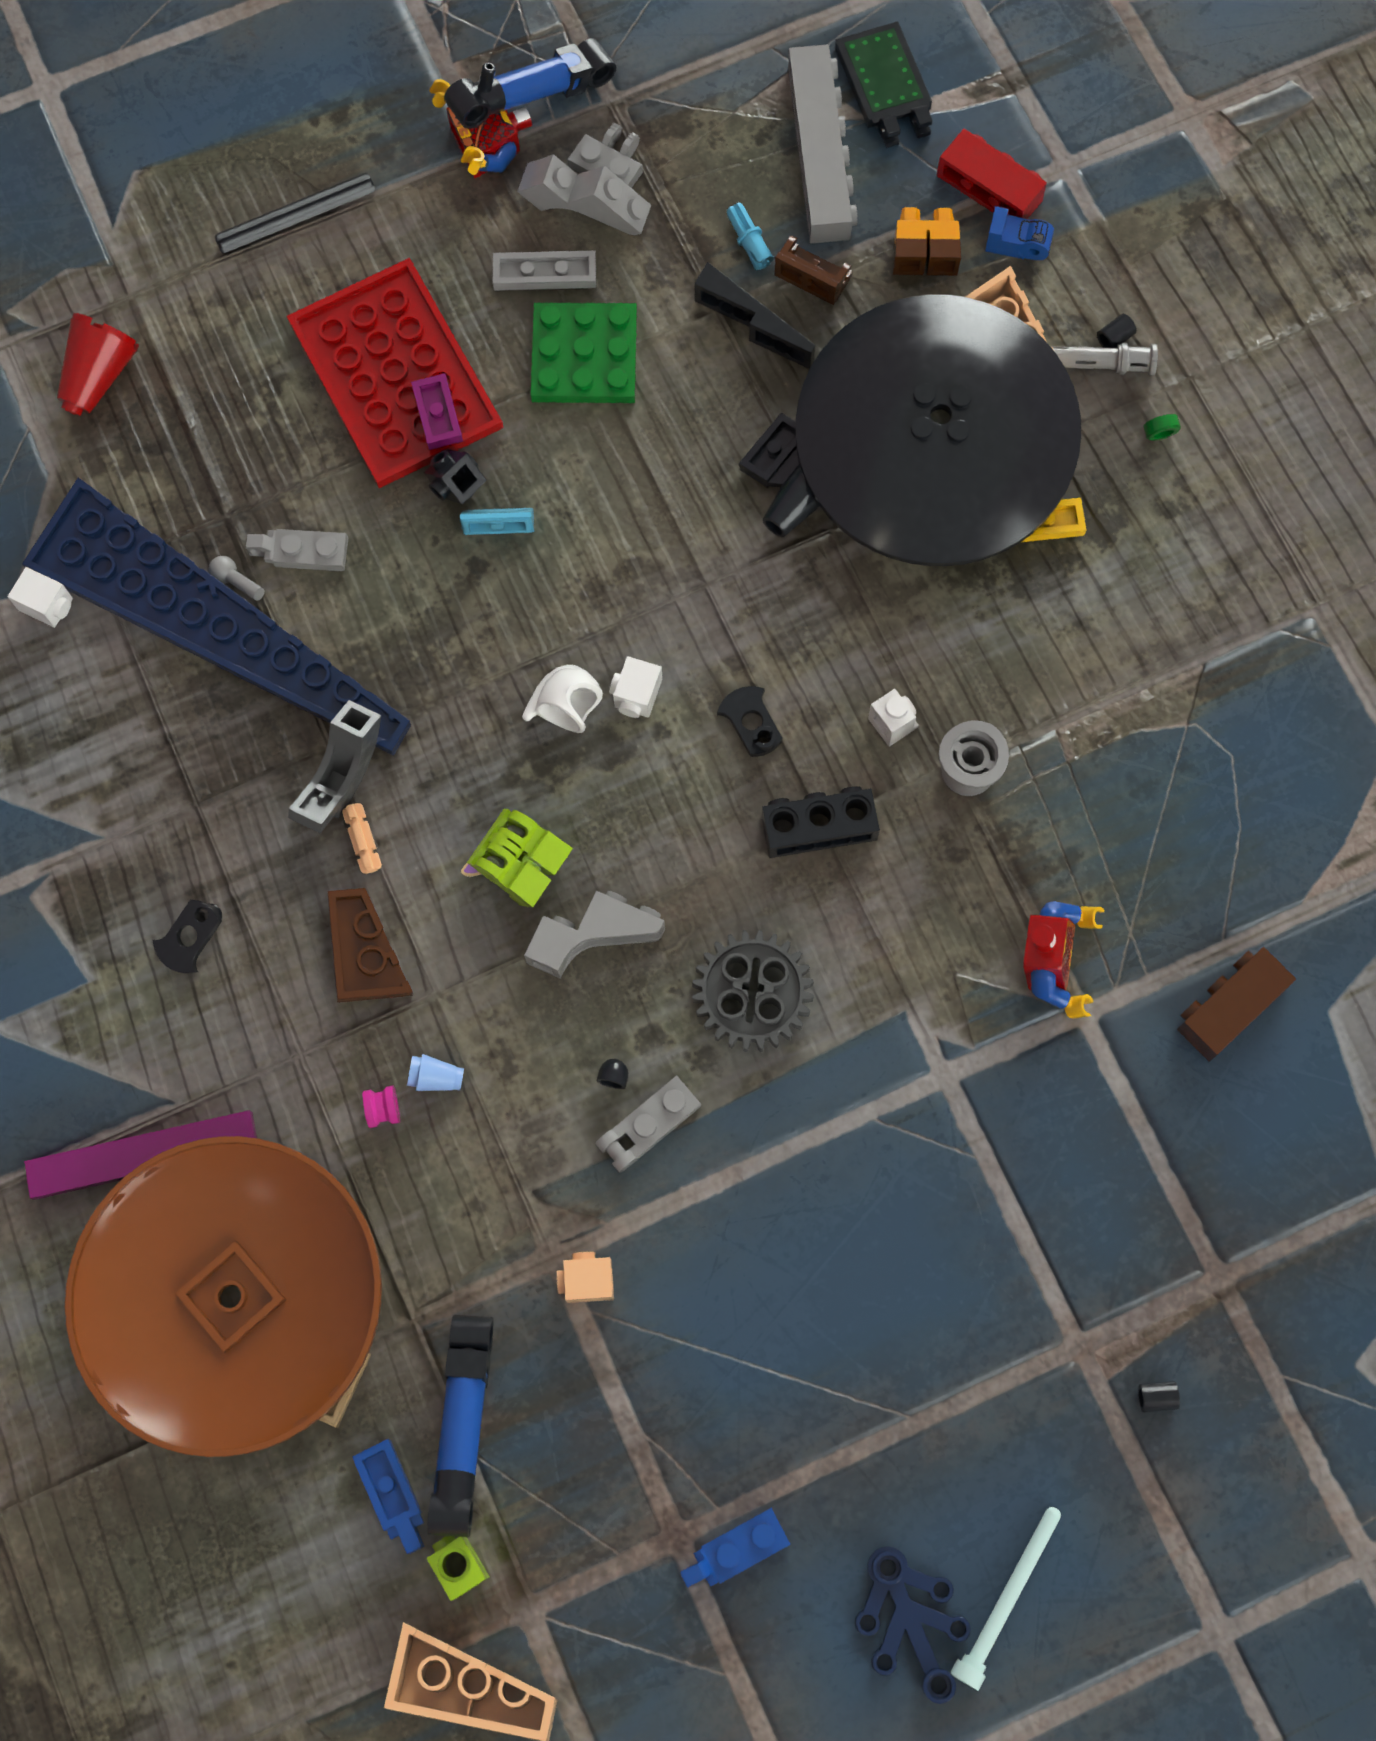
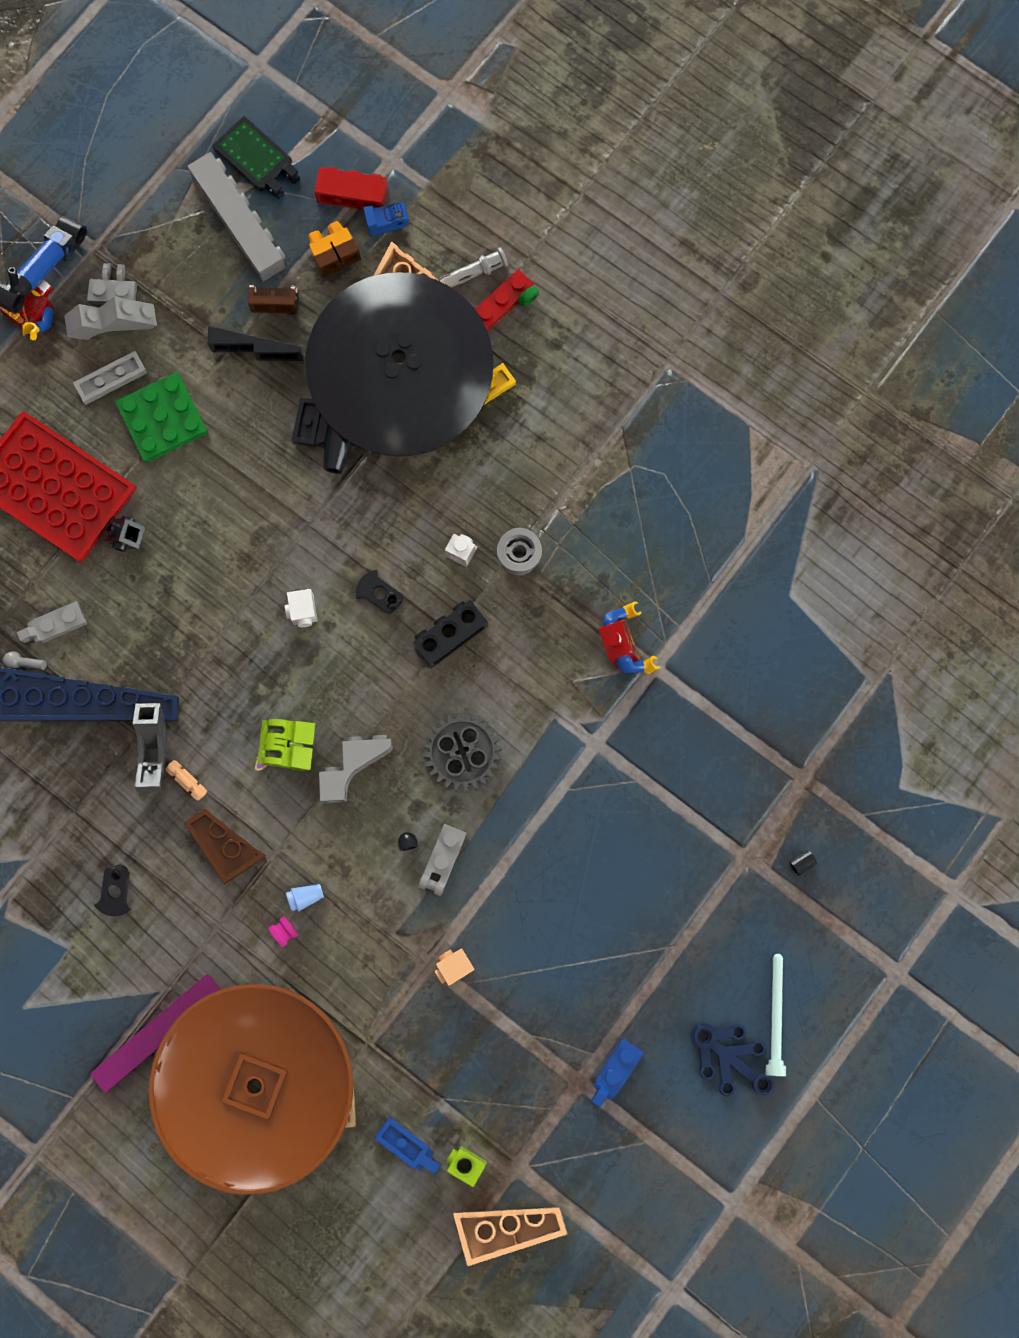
camera: 30 degrees left, 5 degrees up
(437, 411) = (92, 499): magenta plate -> none
(466, 1379) = (427, 1088): piece -> none
(497, 521) = (164, 547): medium azure slope -> none
(565, 698) = (262, 635): white piece -> none
(749, 236) = (224, 296): medium azure axle -> none
(1116, 332) = (473, 250): black hinge -> none
(1124, 415) = (503, 299): none -> red plate
(1235, 1002) = (736, 618): reddish brown brick -> none

